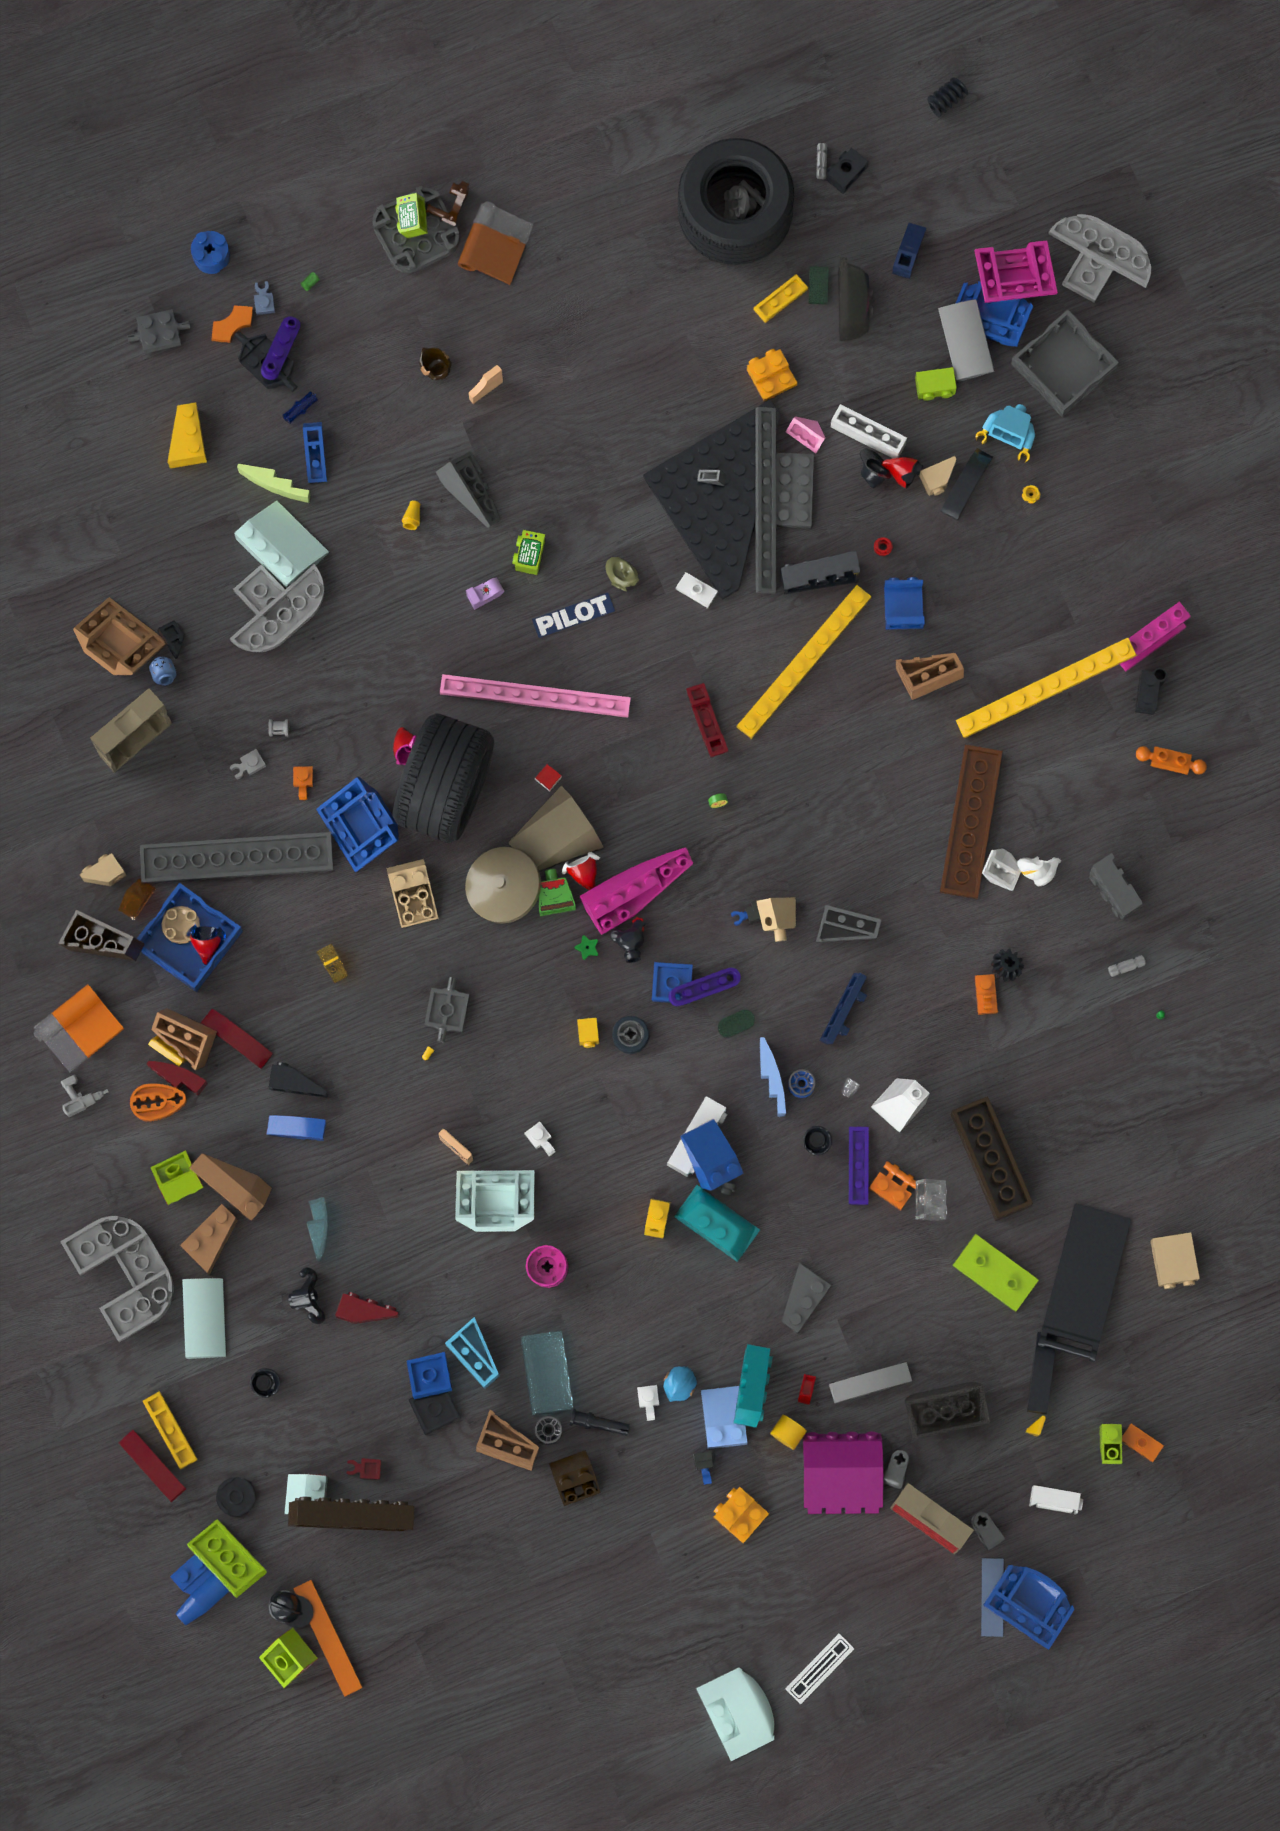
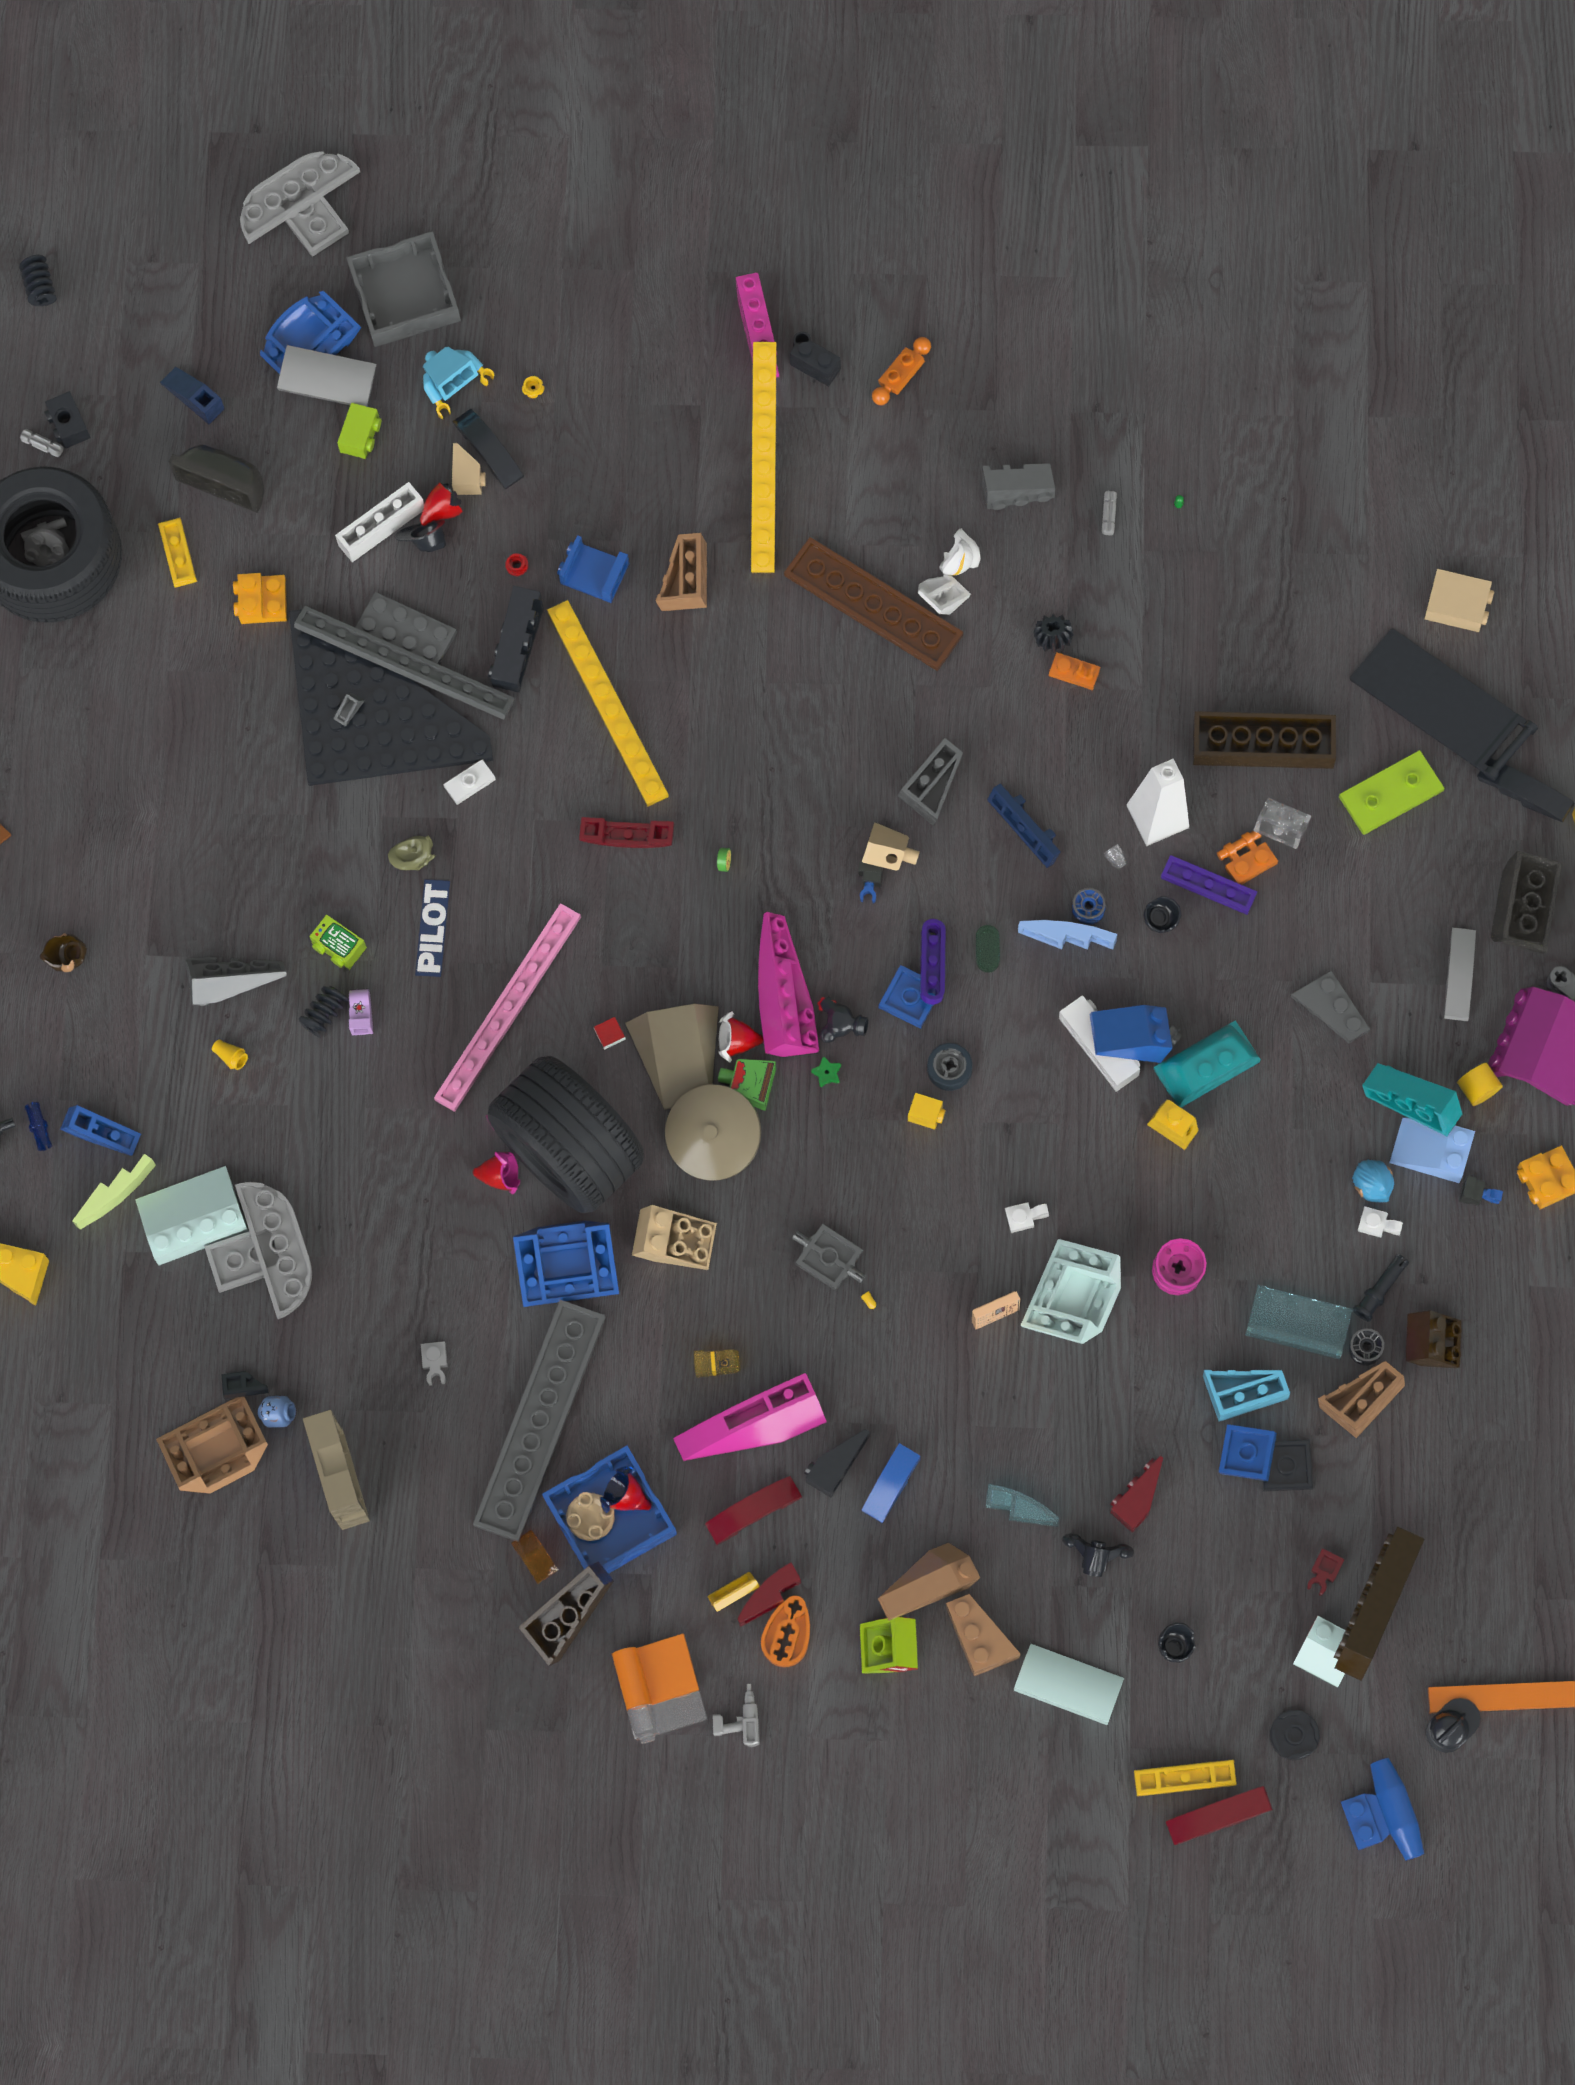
camera: 60 degrees left, 5 degrees down
(104, 872) = (486, 1577): tan slope -> none
(141, 1264) = (974, 1730): light grey plate -> none
(185, 1036) = (725, 1564): medium nougat wedge -> none
(226, 1558) = (1366, 1771): lime plate -> none
(278, 727) = (408, 1307): light grey bush -> none
(288, 1657) = (1510, 1750): lime slope -> none
(300, 1012) = (756, 1422): none -> dark pink wedge
(303, 778) = (481, 1306): orange plate -> none
(473, 566) = (322, 1010): none -> black piece
(488, 382) = (117, 904): light nougat tile -> none
(806, 432) = (347, 589): bright pink slope -> none
(806, 1389) = (1437, 1047): red piece -> none
(818, 285) = (183, 506): clear green tile -> none
(1016, 272) = (277, 291): dark pink slope -> none

